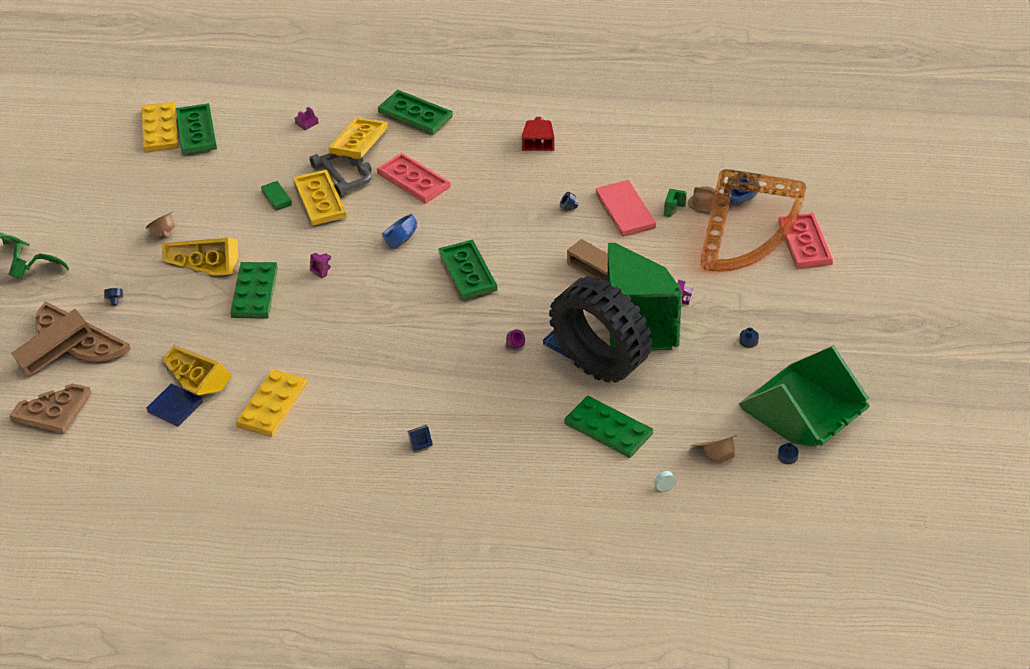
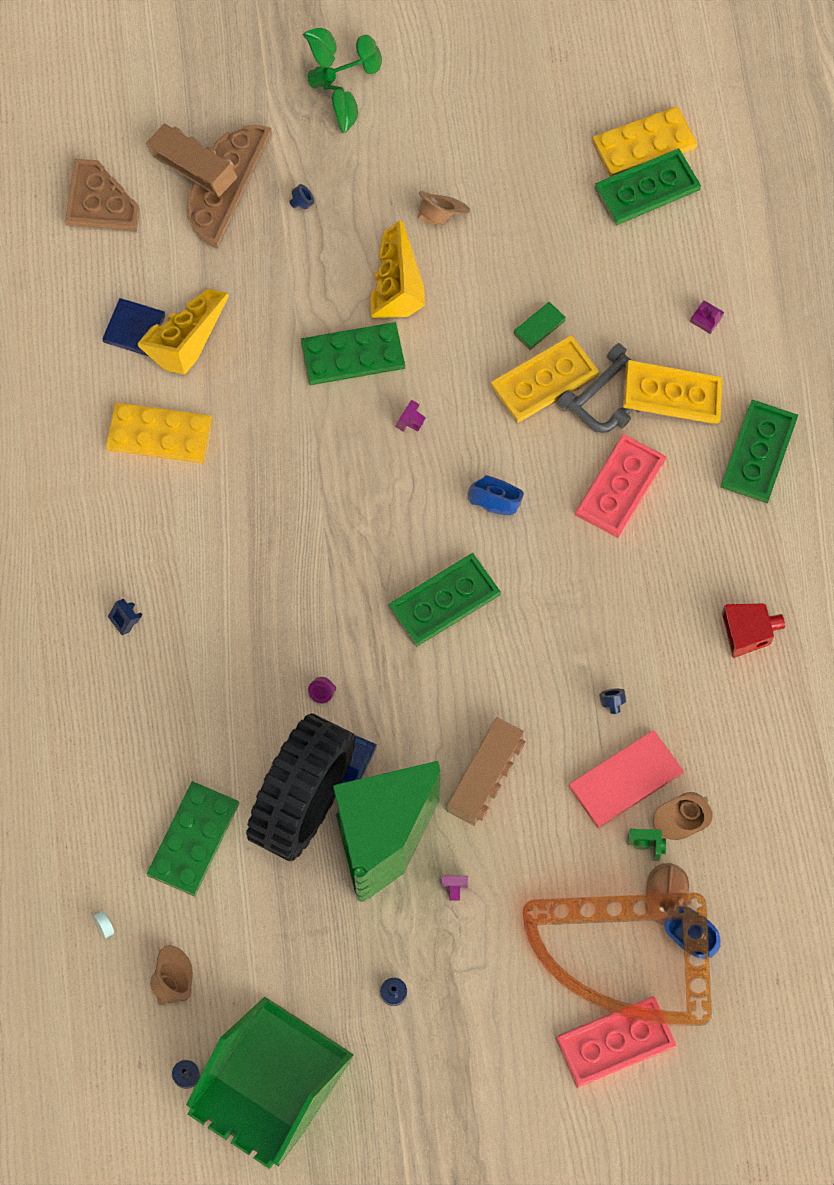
camera: 75 degrees right, 25 degrees up
(660, 178) = (683, 816): none -> medium nougat piece

